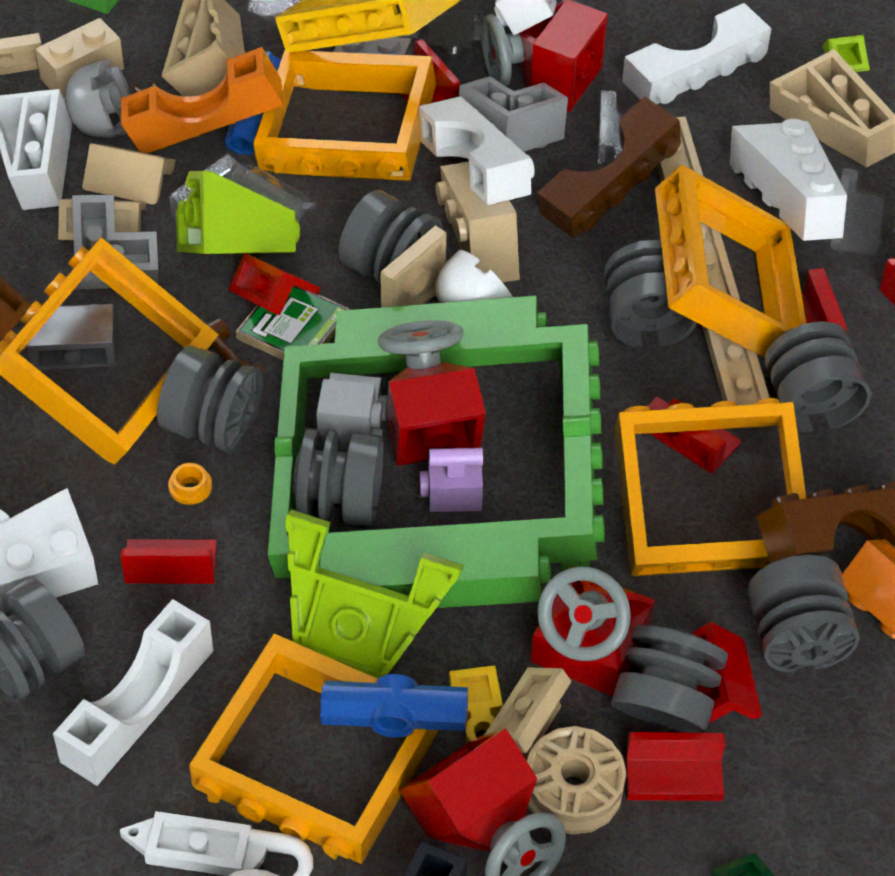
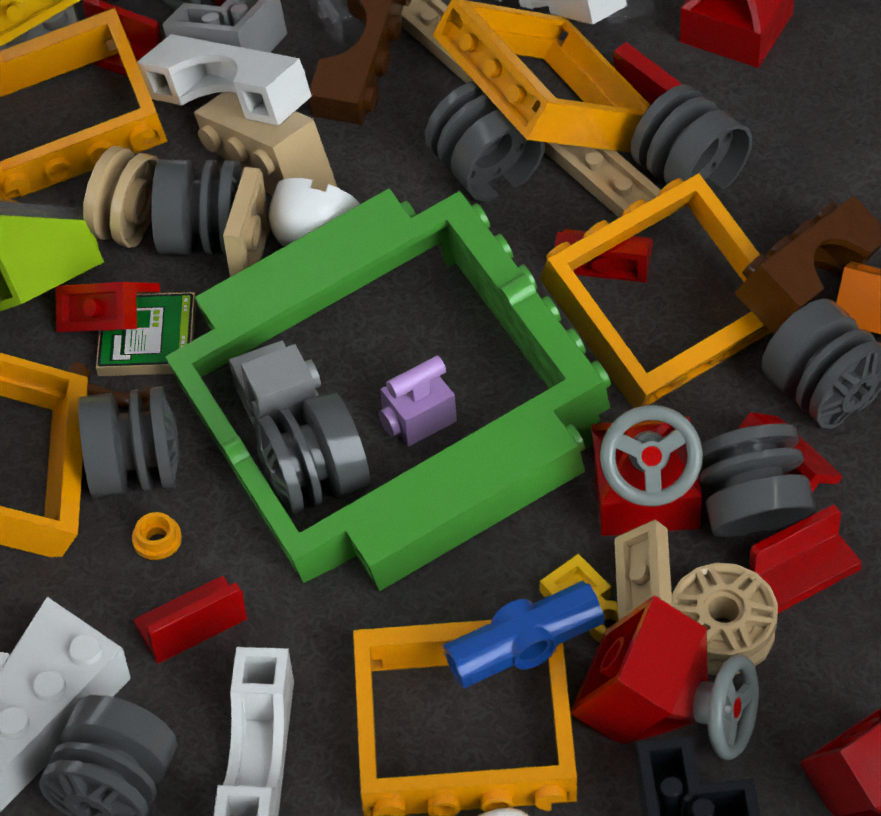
camera: 25 degrees left, 0 degrees up
(330, 201) = (120, 196): none -> tan wheel
(353, 618) = (421, 575): lime wing -> none
(430, 400) = (352, 336): red piece -> none

